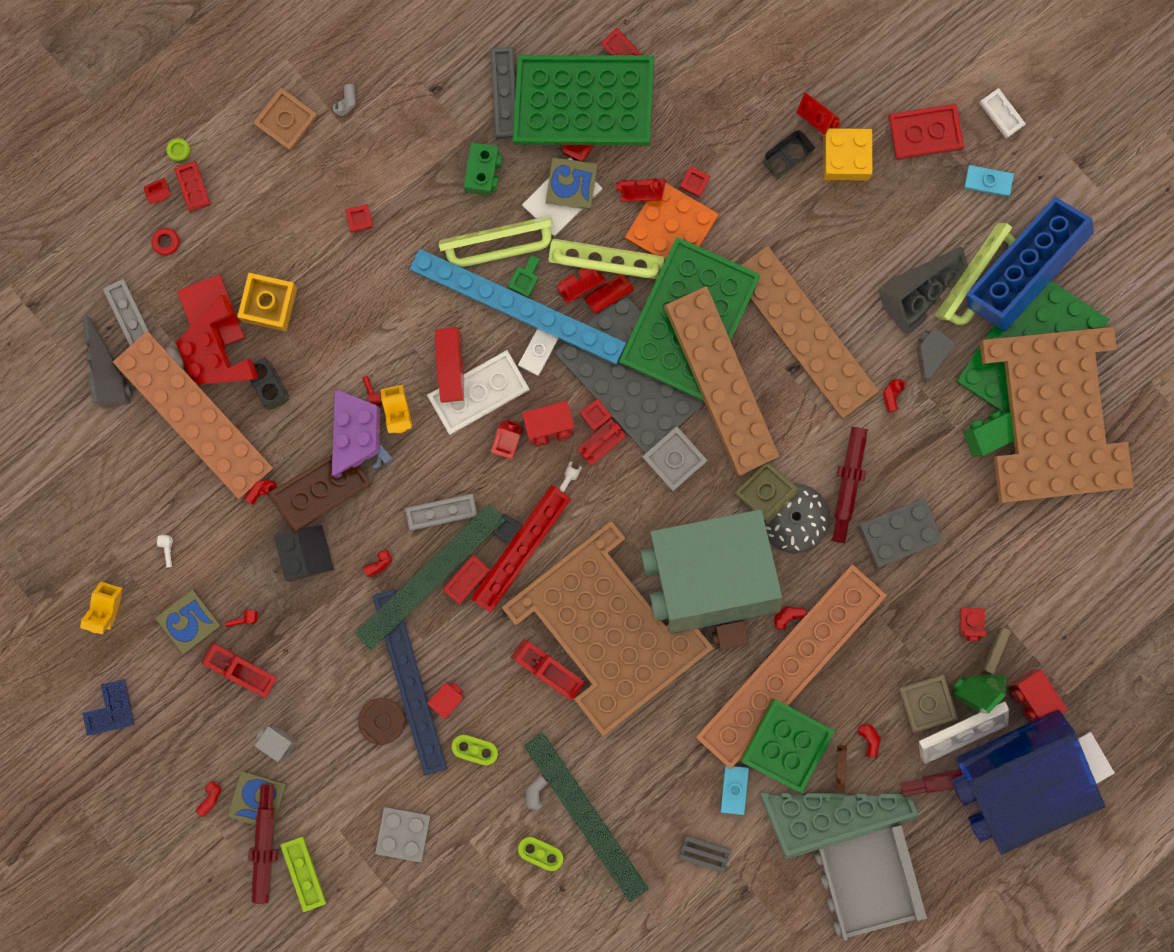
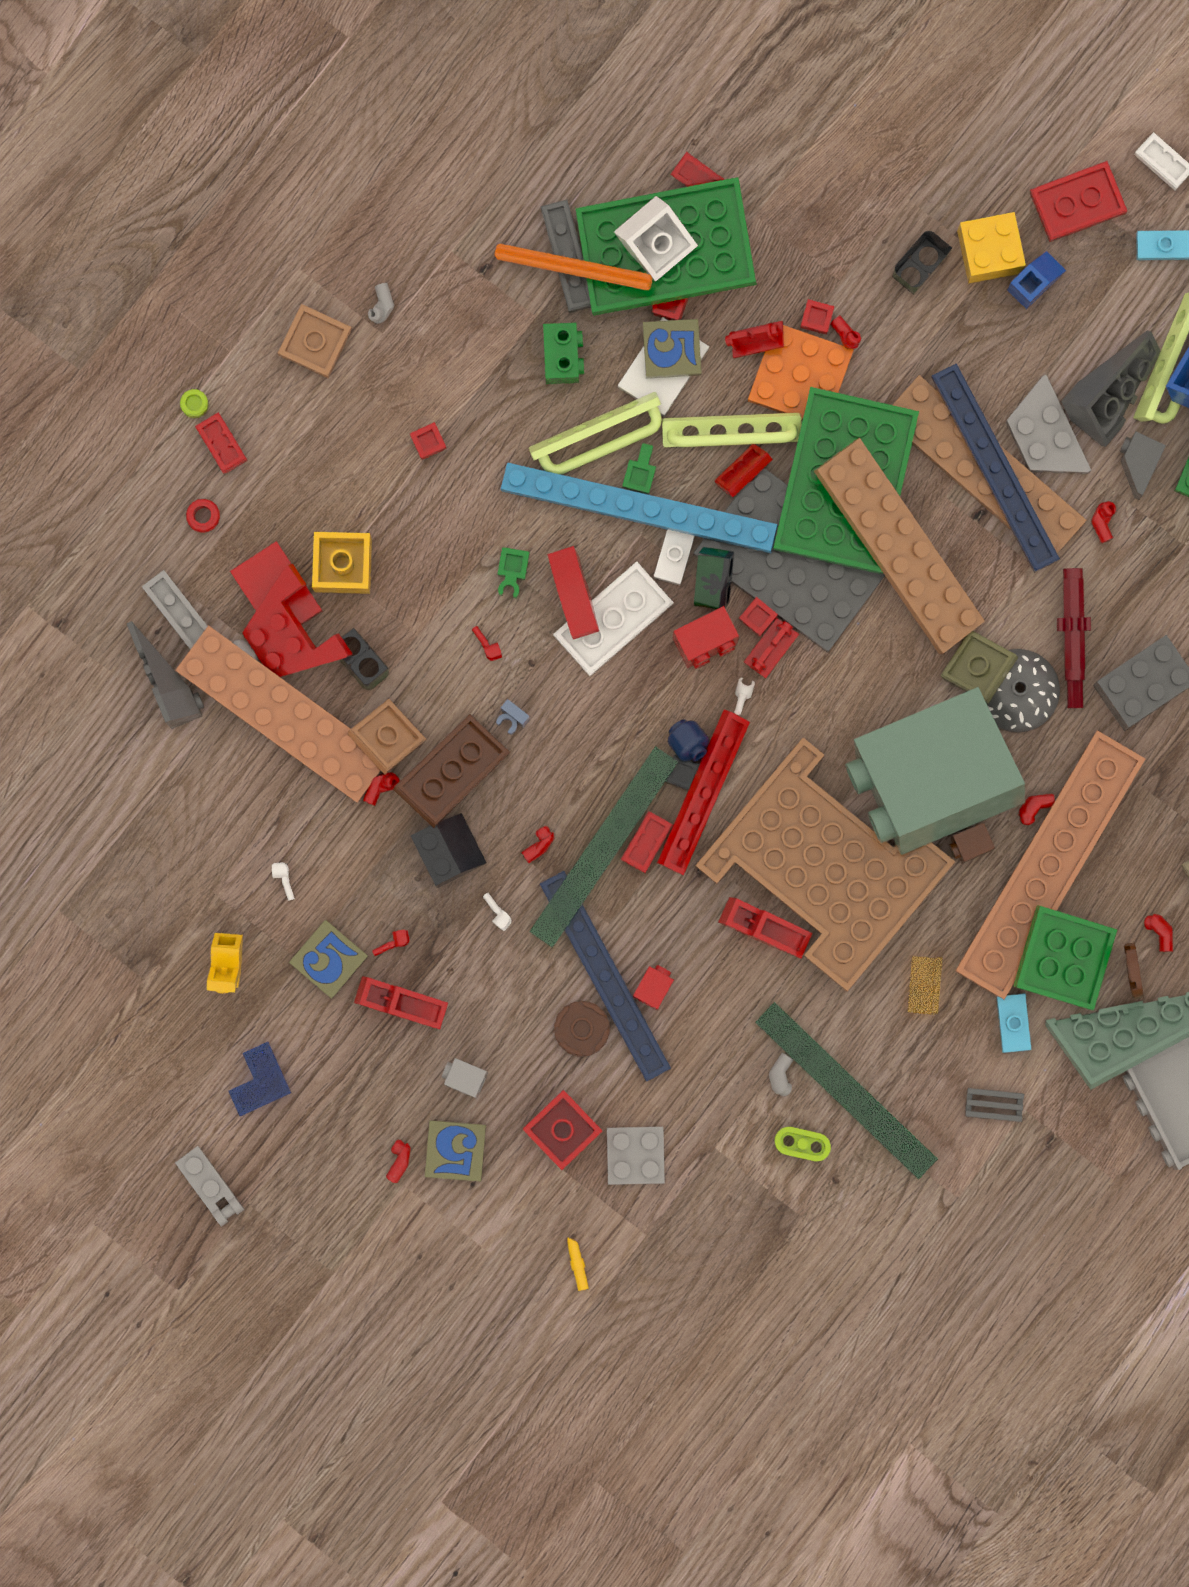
camera: 10 degrees left, 0 degrees up
(51, 786) = (209, 1185): none -> light grey plate
(157, 191) = (181, 457): red plate -> none
(263, 852) = (476, 1210): dark red piece -> none
(273, 450) = (386, 736): none -> medium nougat tile
(303, 874) = (529, 1225): lime plate -> none
(336, 618) = (502, 919): none -> white hand
(336, 914) = (577, 1264): none -> yellow piece
(346, 802) = (562, 1130): none -> red brick
(354, 433) = (478, 695): medium lavender wing -> none
(396, 409) = (521, 658): yellow brick -> none
(405, 334) = (512, 566): none -> green plate
(441, 512) = (599, 769): light grey tile -> none
(474, 750) = (699, 1039): lime plate -> none
(506, 101) = (573, 266): none -> orange axle
(507, 439) = (659, 667): bracket -> none
(517, 504) = (688, 740): none -> dark blue head
(565, 376) = (713, 578): none -> dark green piece
(573, 288) = (699, 472): red hinge -> none
(576, 91) = (656, 238): none -> white slope
(668, 744) = (924, 985): none -> clear yellow panel
(674, 459) = (862, 649): light grey plate -> none
(717, 204) = (849, 338): none -> red arm
(813, 333) = (995, 468): none -> dark blue tile
(817, 114) = (946, 207): red hinge -> none
(860, 313) = (1045, 433): none -> light grey wing
(878, 187) = (1035, 279): none -> blue slope

